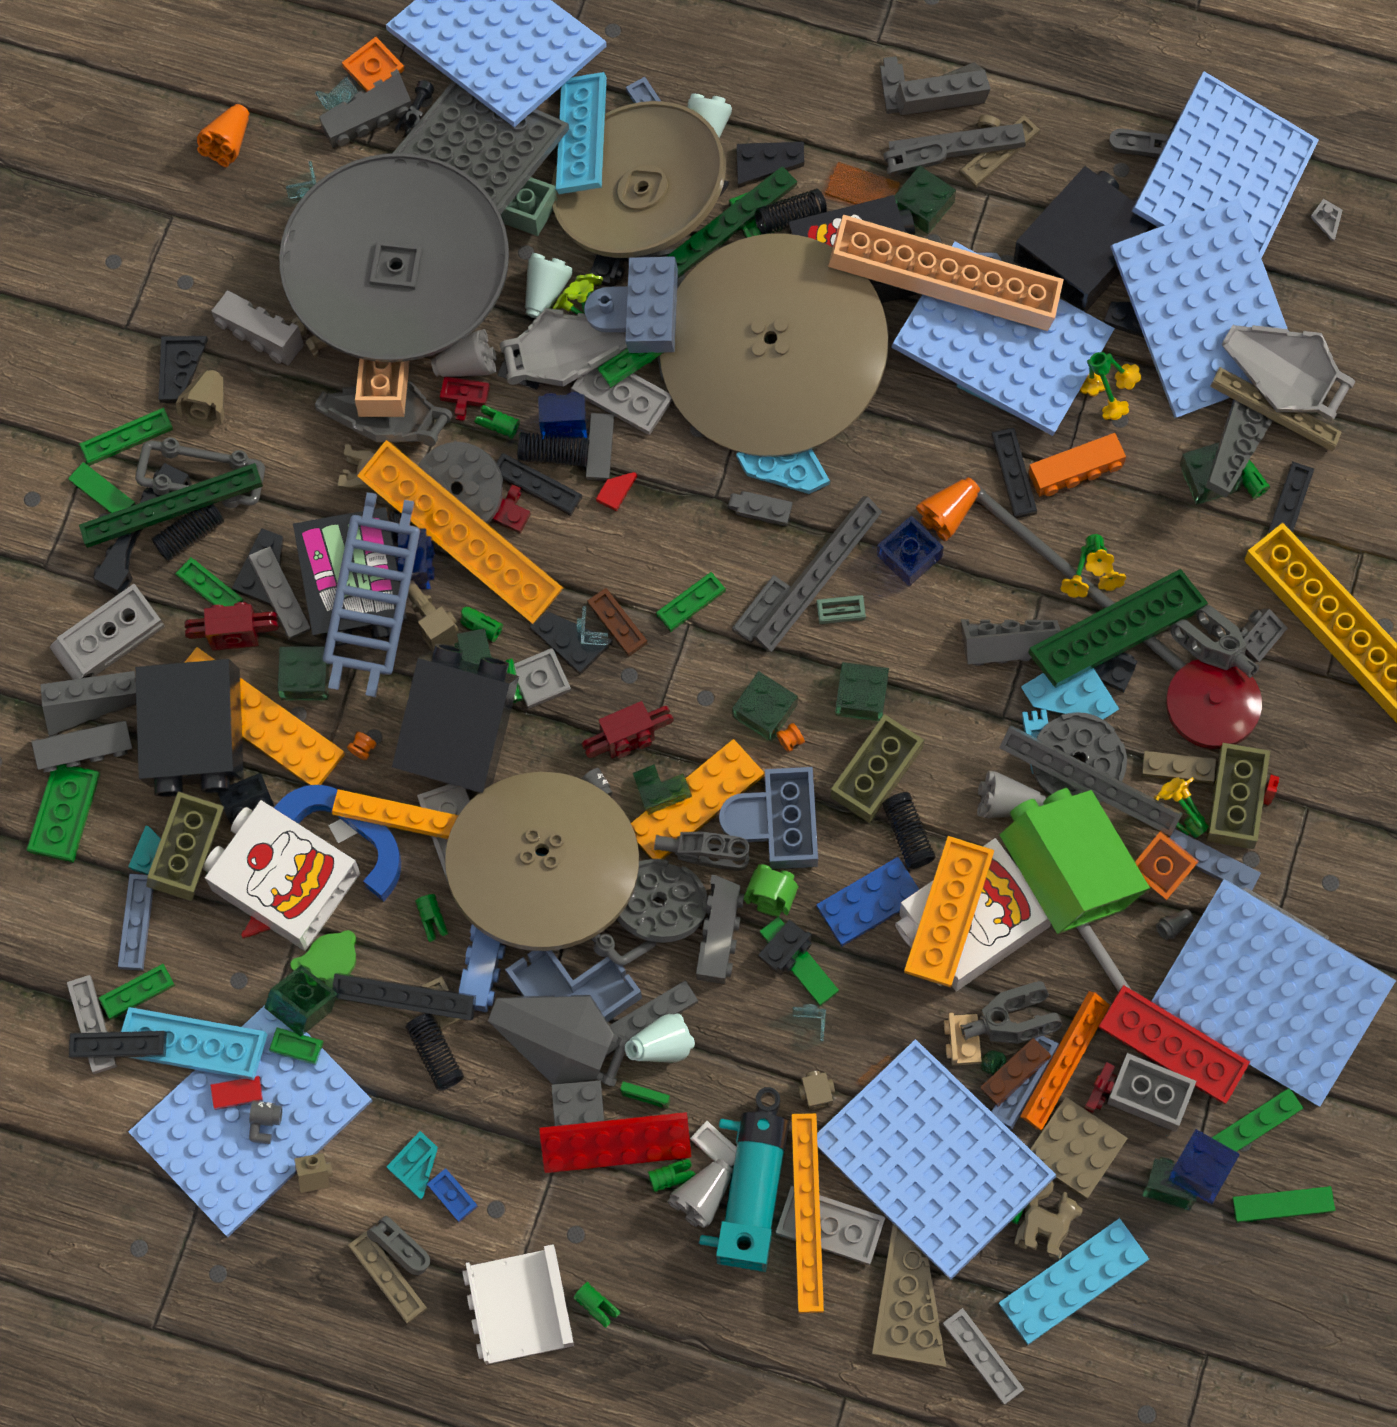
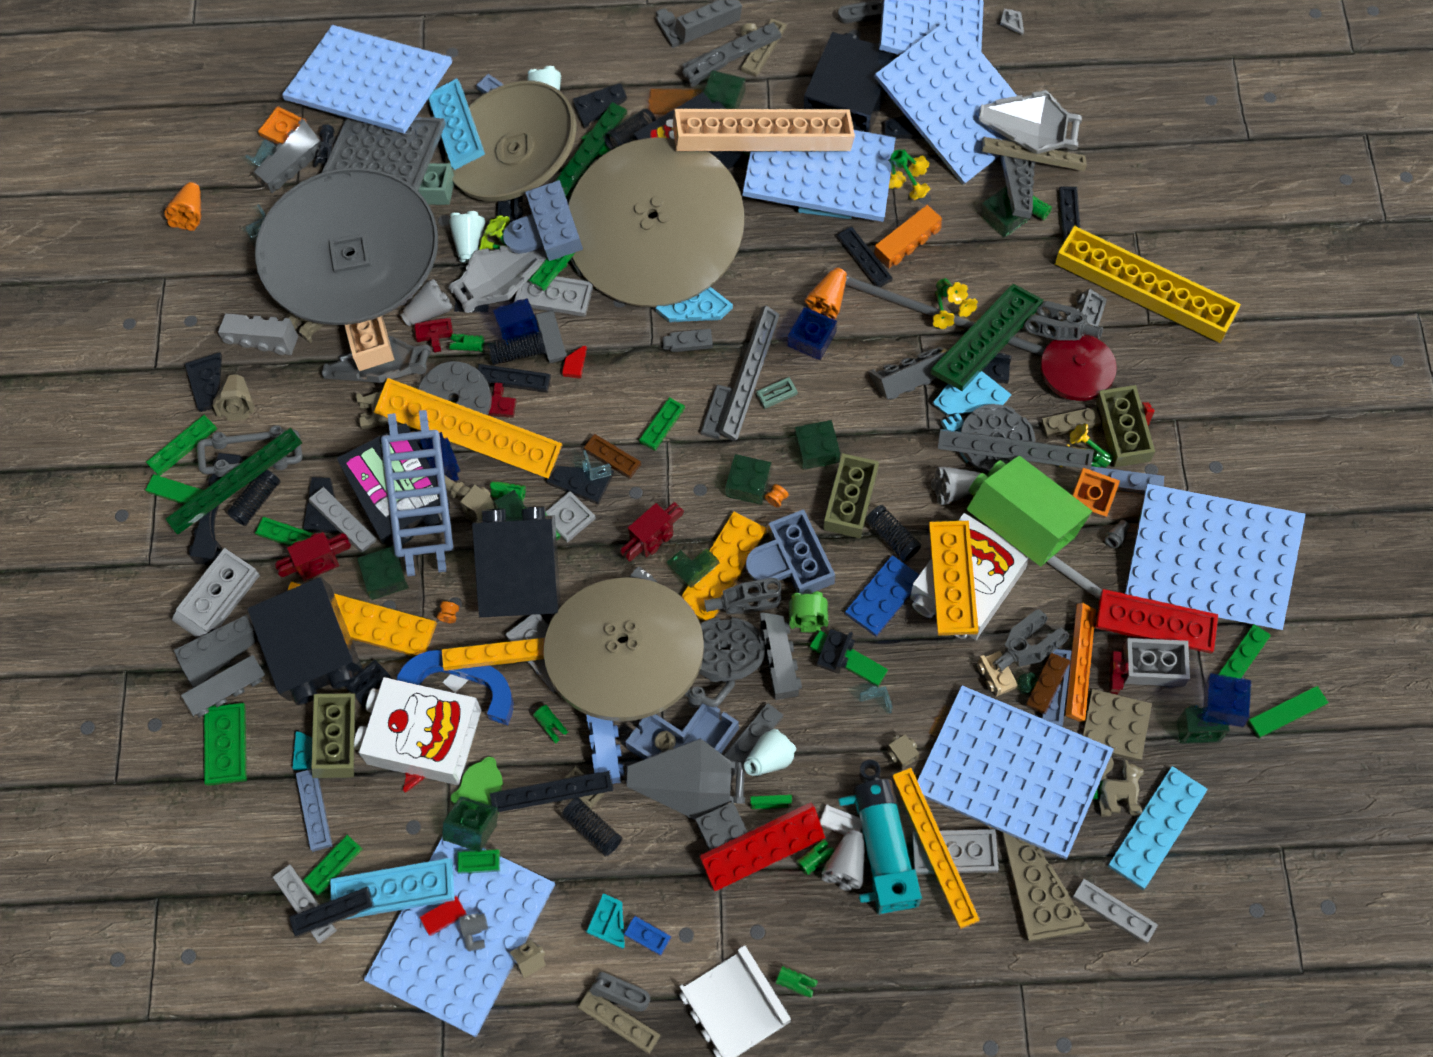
camera: 20 degrees left, 5 degrees down
(551, 983) = (665, 741): none -> dark tan tile

